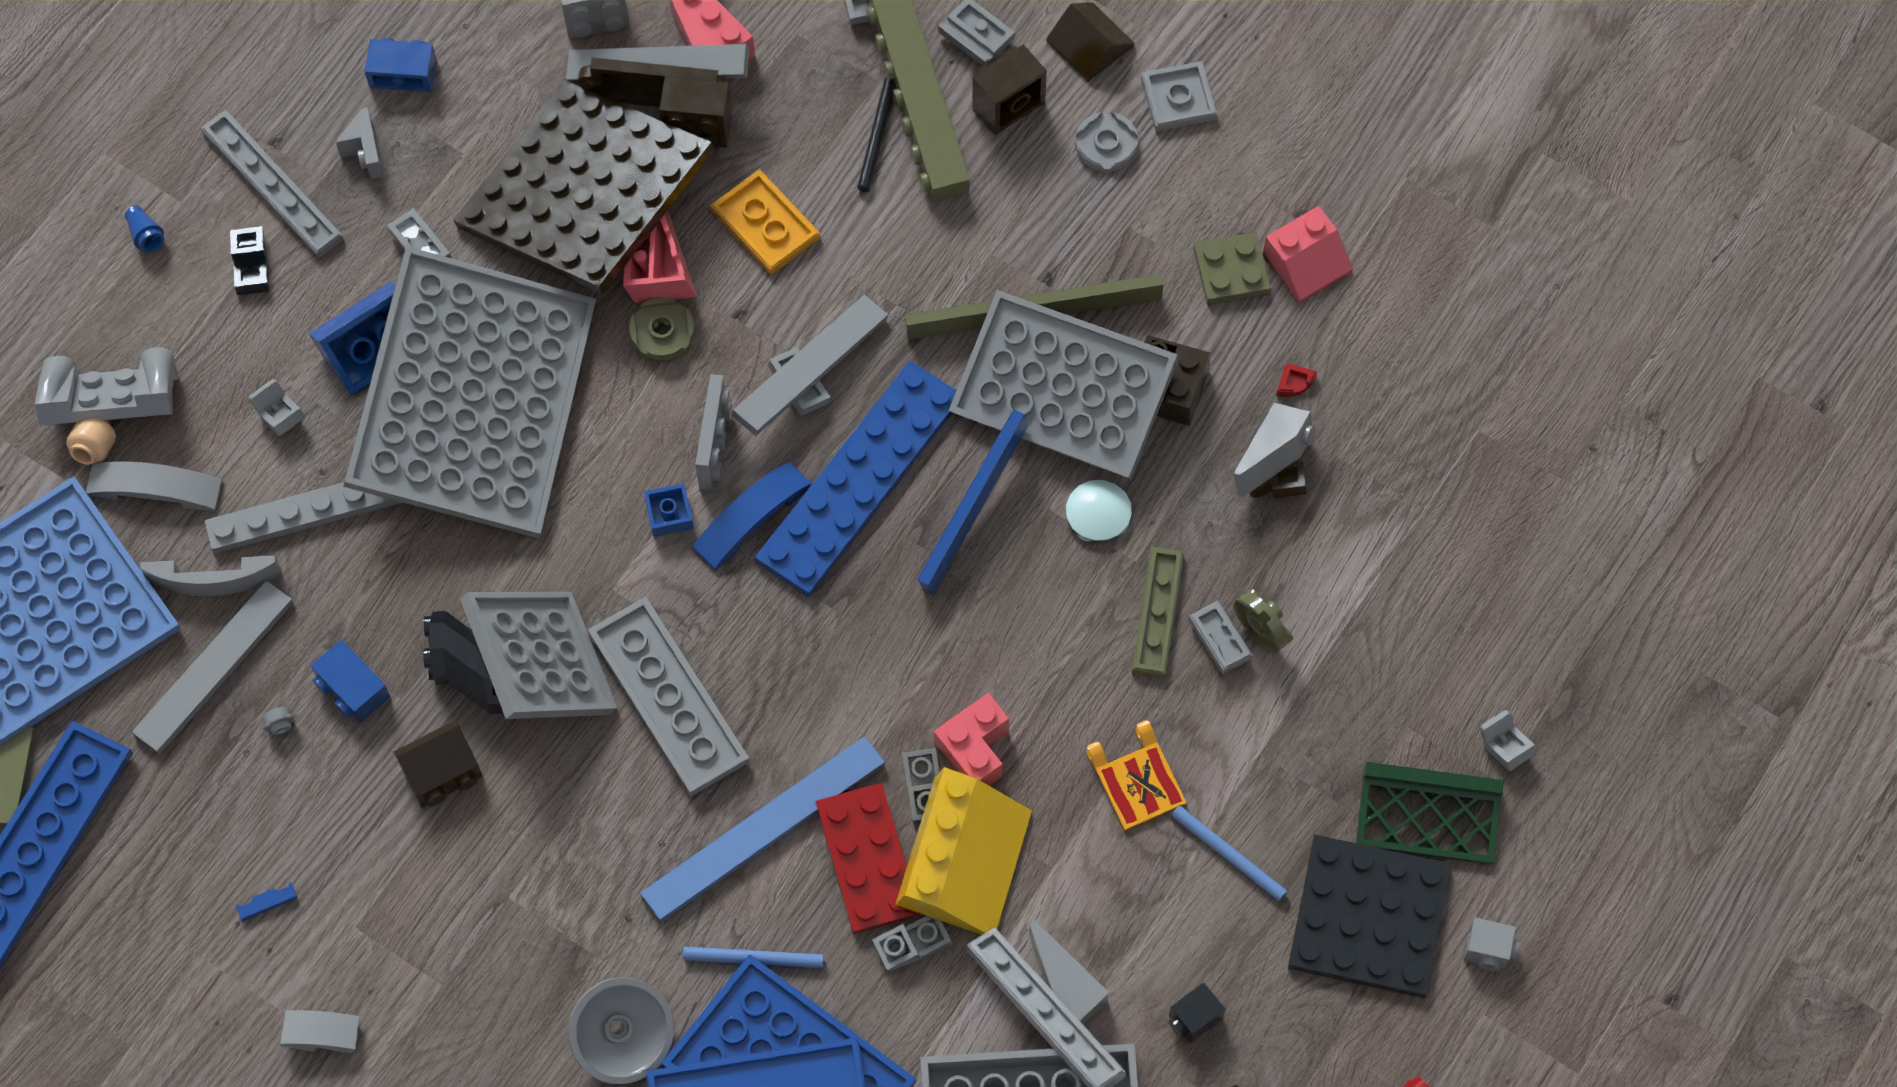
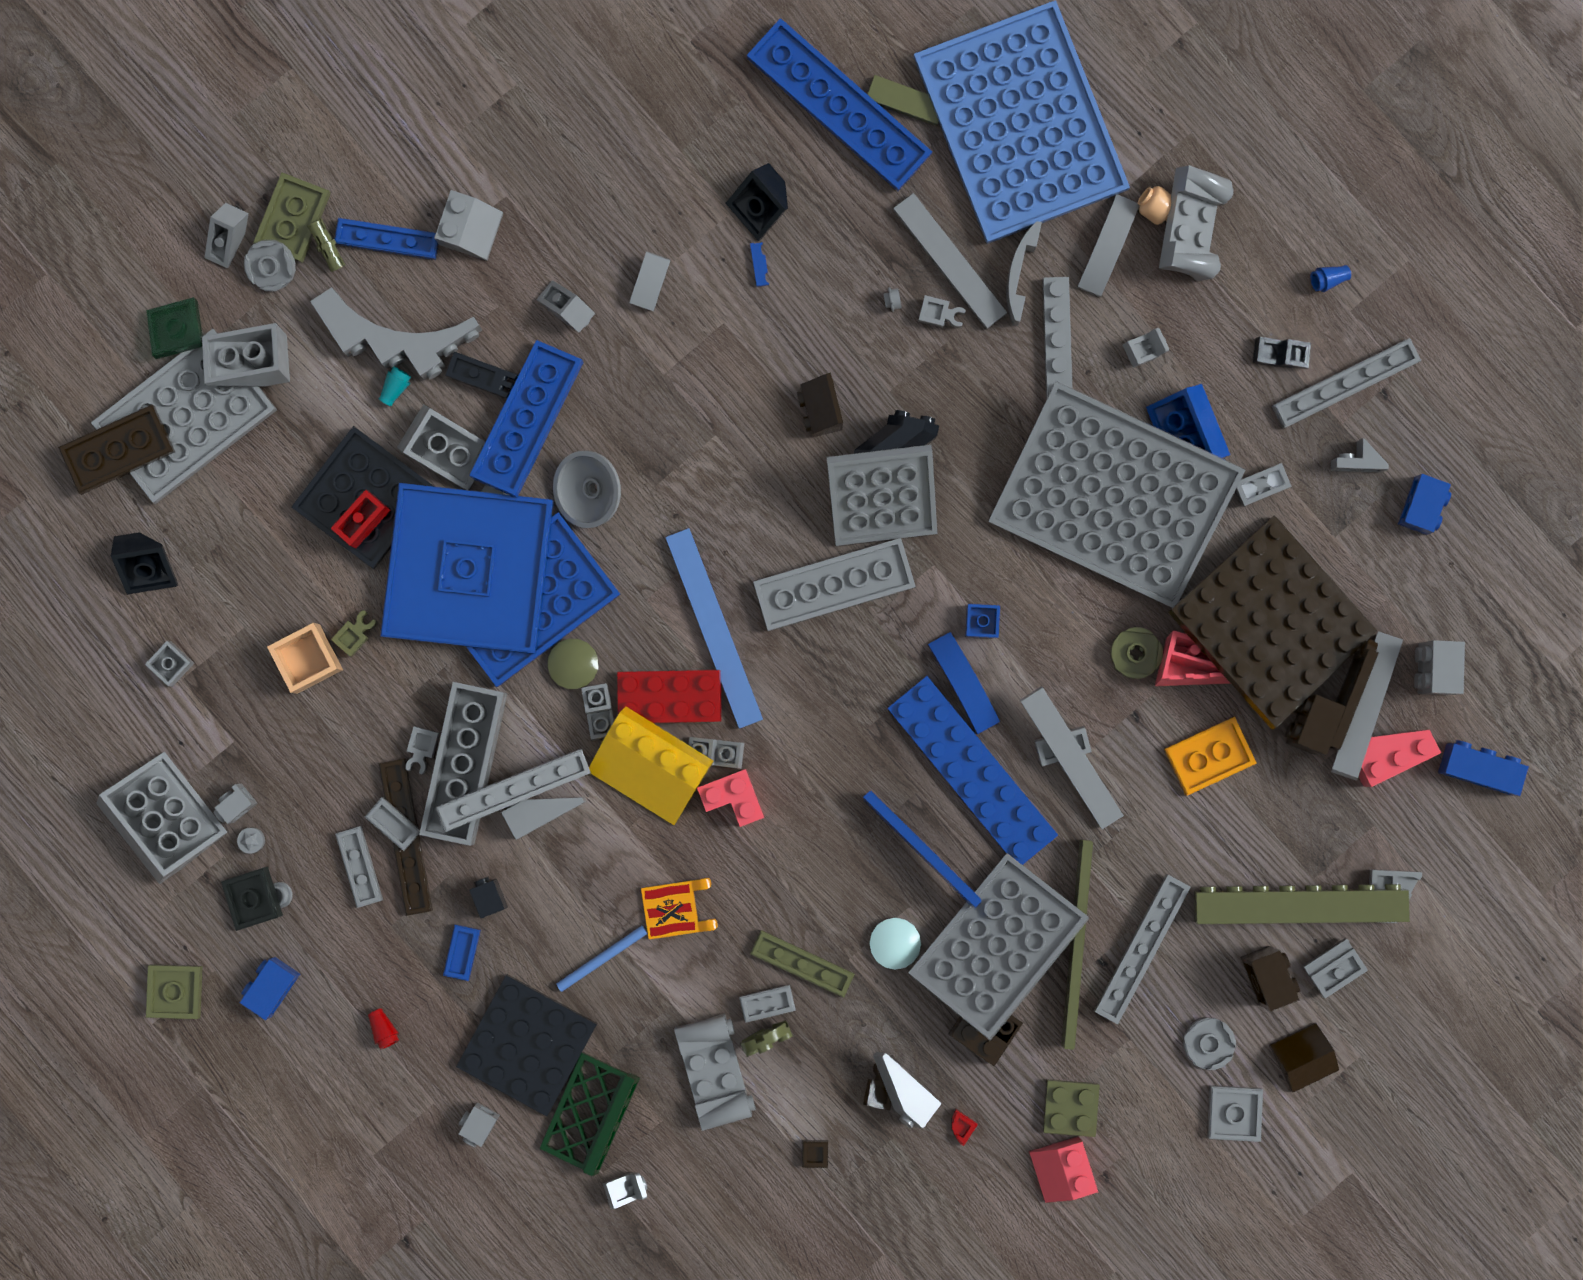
camera: 105 degrees right, 20 degrees up
(181, 916) = (759, 200): none -> black slope
(285, 662) = (936, 312): none -> light grey plate
(349, 681) = (908, 356): blue brick -> none
(712, 435) = (1031, 669): light grey plate -> none
(765, 957) = (619, 601): medium blue bar -> none
(858, 993) = (573, 663): none -> olive dish
(876, 136) = (1262, 862): black bar -> none
(1018, 236) = (1142, 949): none -> light grey plate
(1278, 1031) = (461, 952): none -> blue tile
(1326, 677) = (714, 1072): none -> light grey piece
(1385, 536) = (814, 1153): none -> dark brown tile

